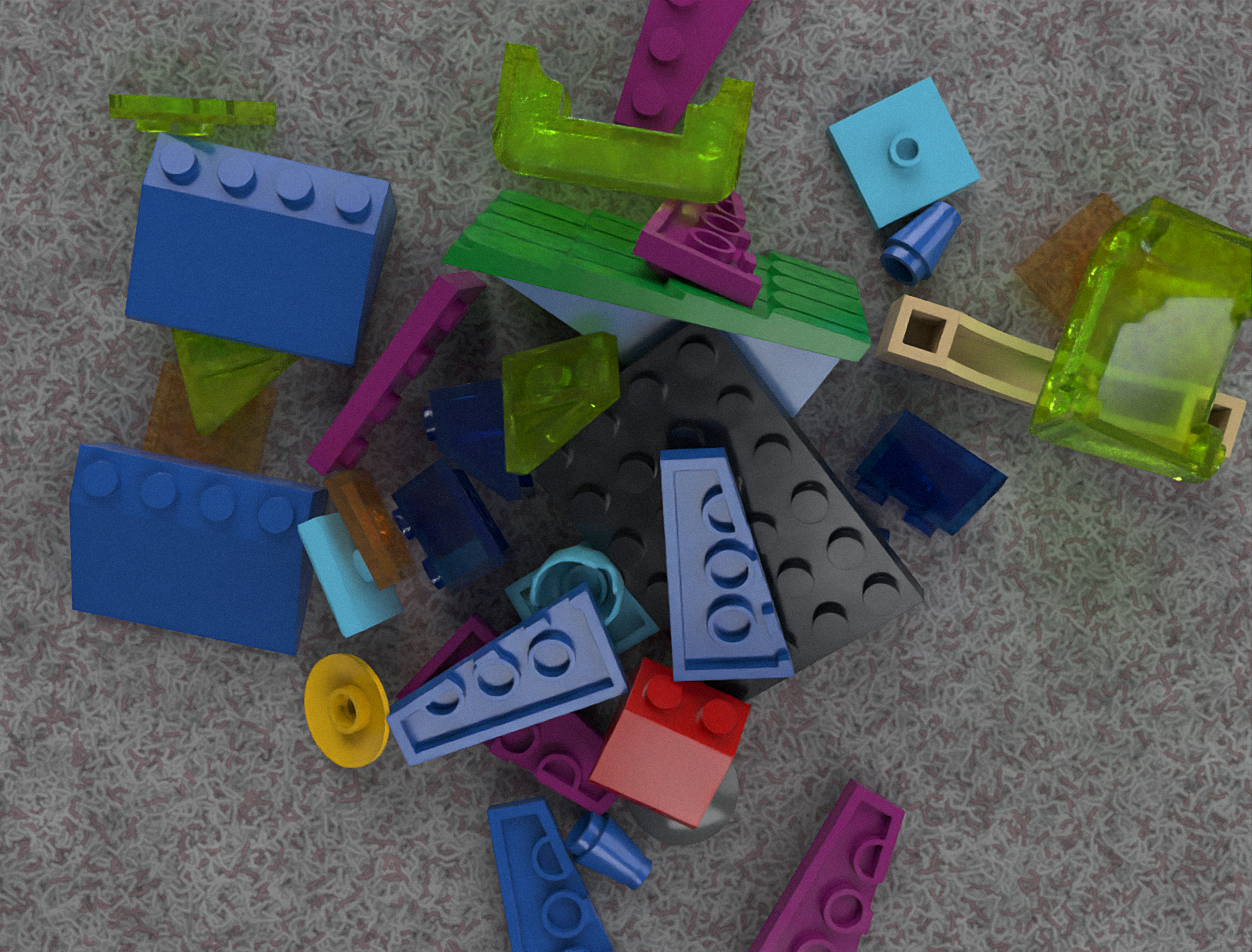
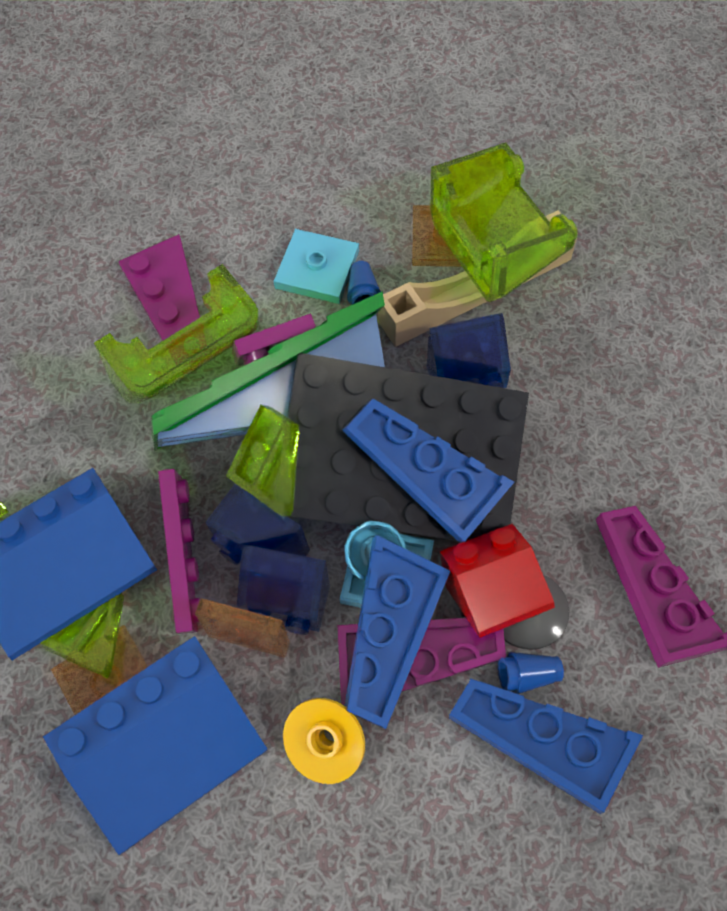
camera: 45 degrees left, 25 degrees down
(345, 577) = (252, 656): medium azure plate -> none

